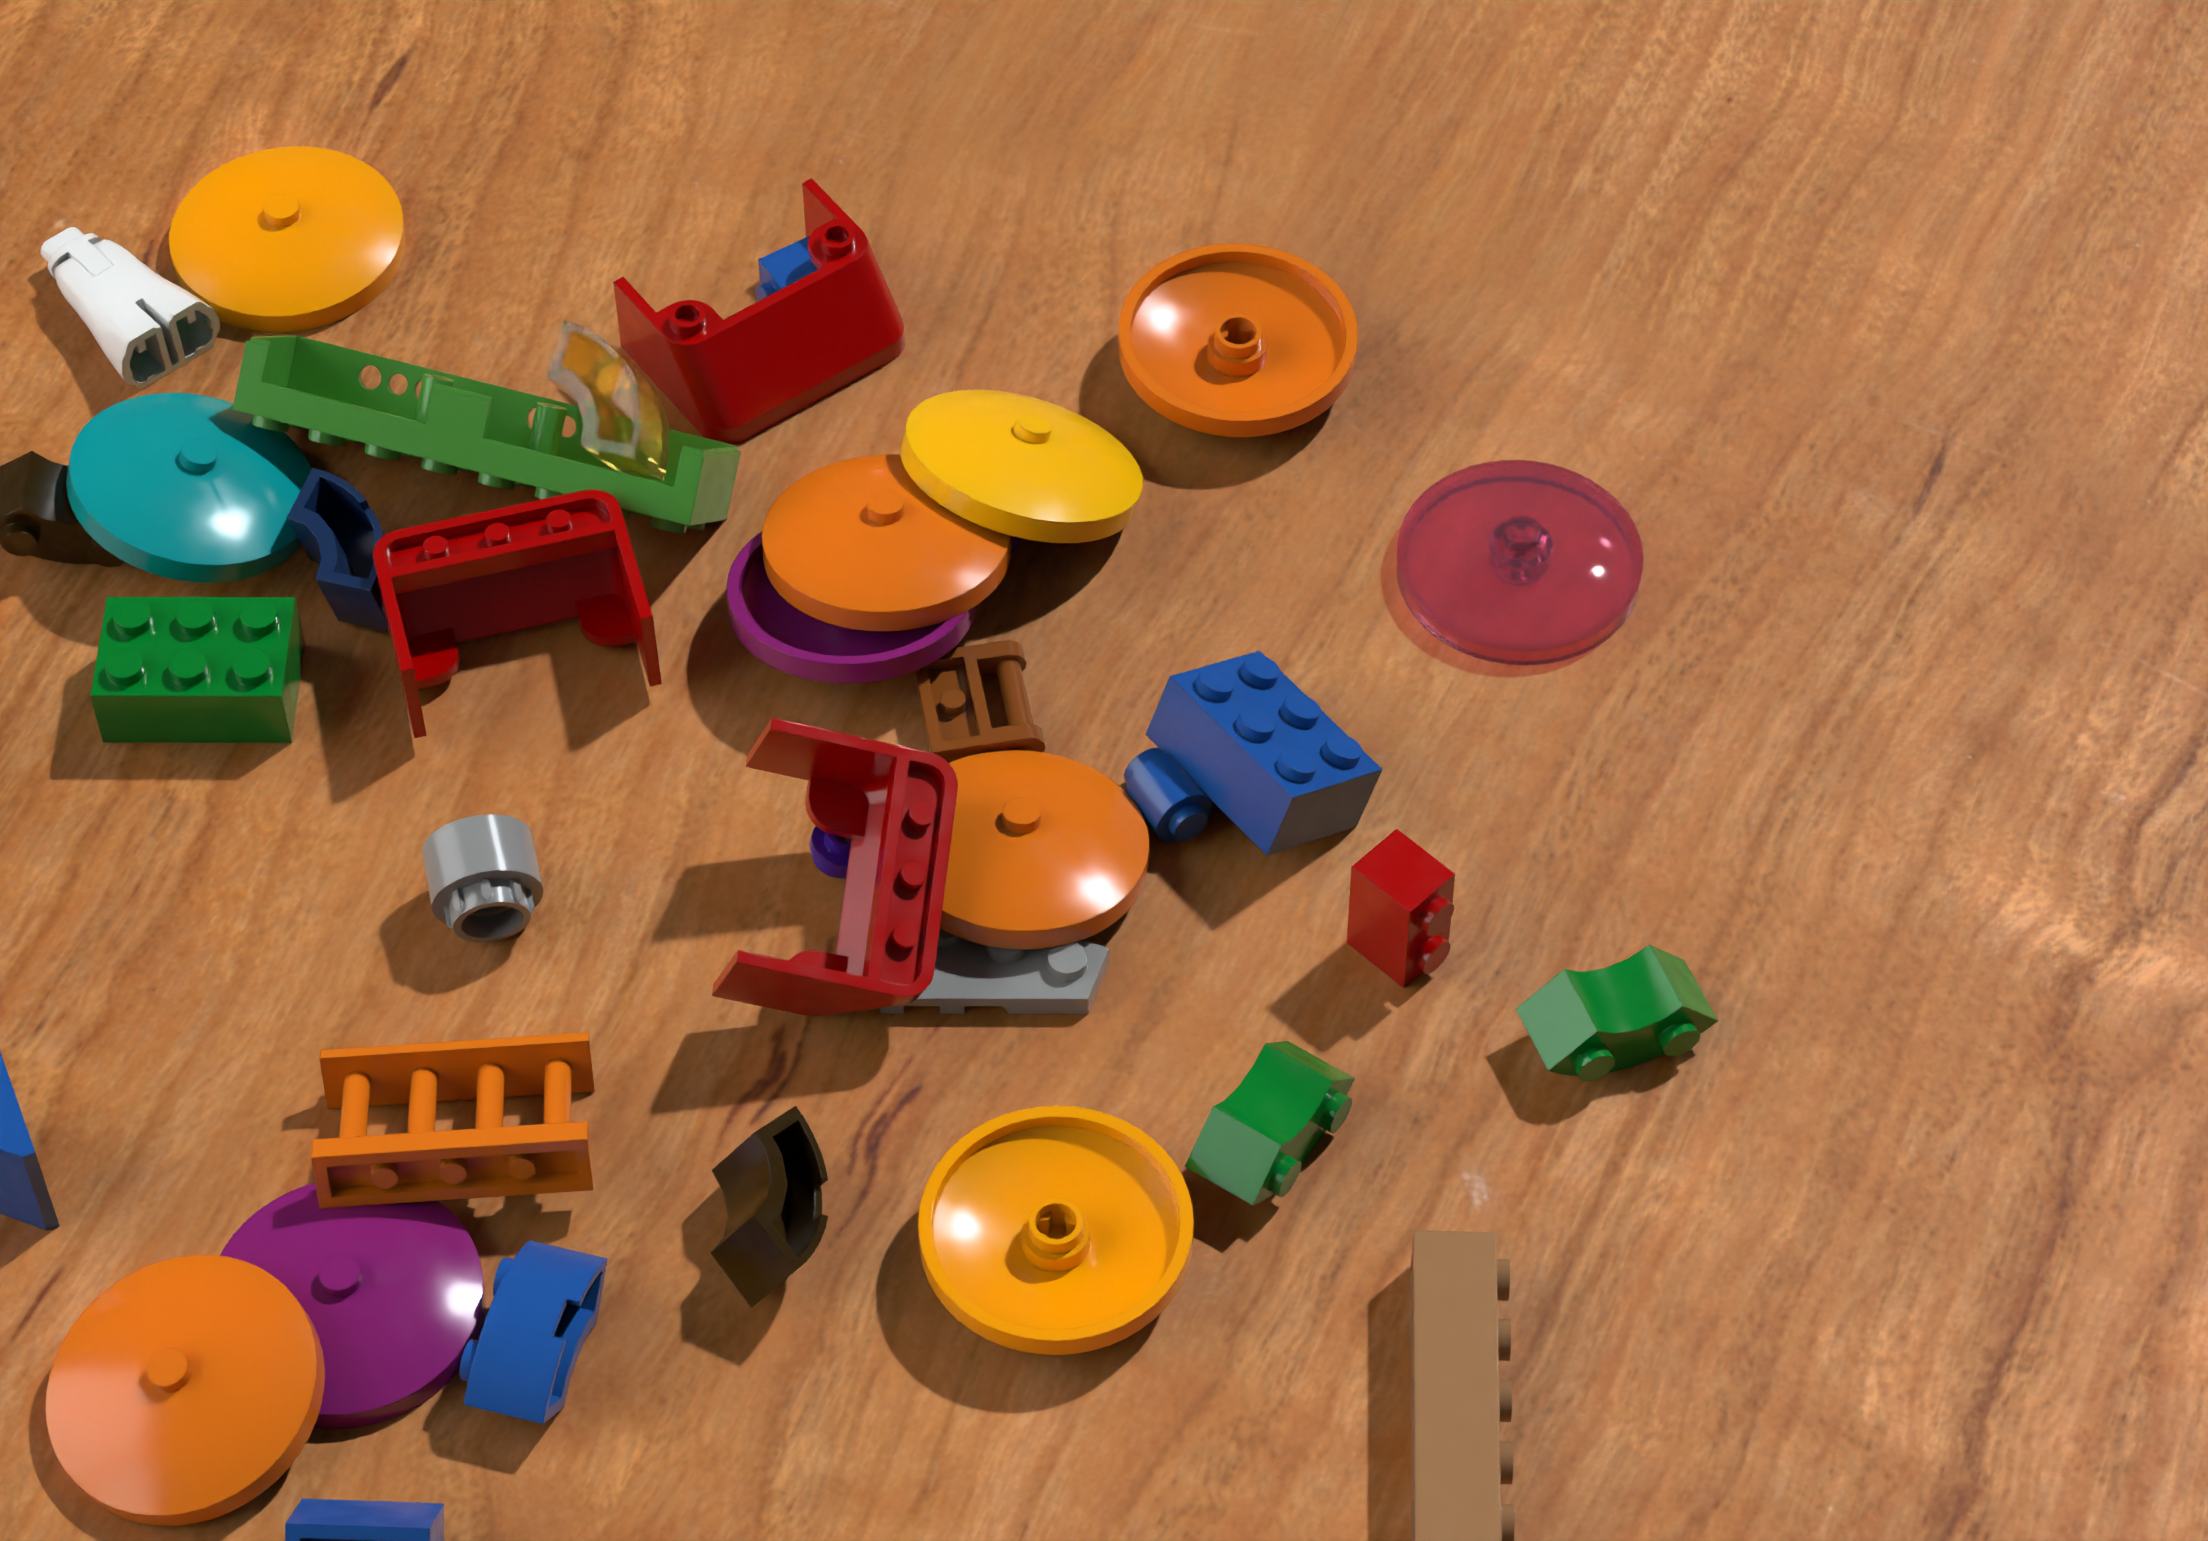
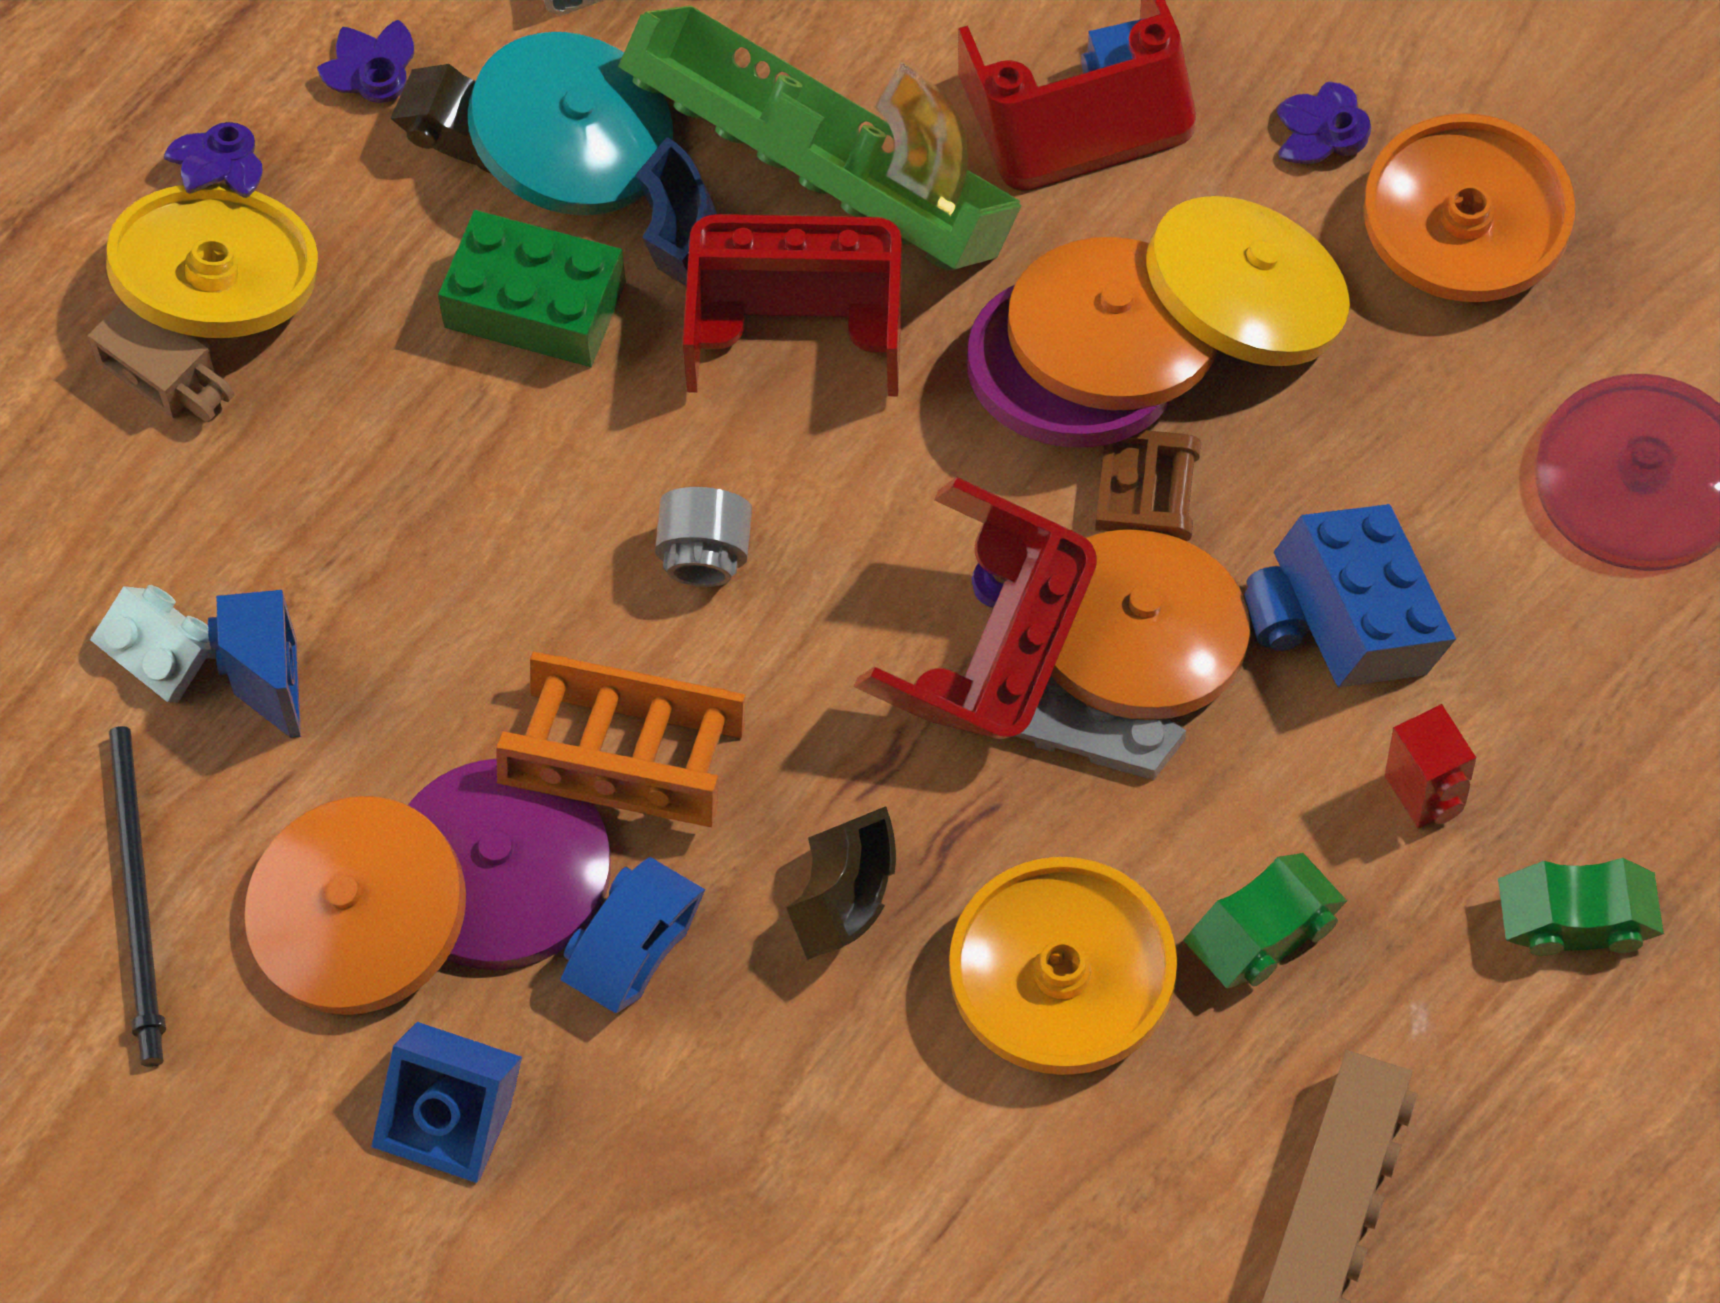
camera: 20 degrees right, 10 degrees up
(1047, 301) = (1323, 124): none -> dark purple plate

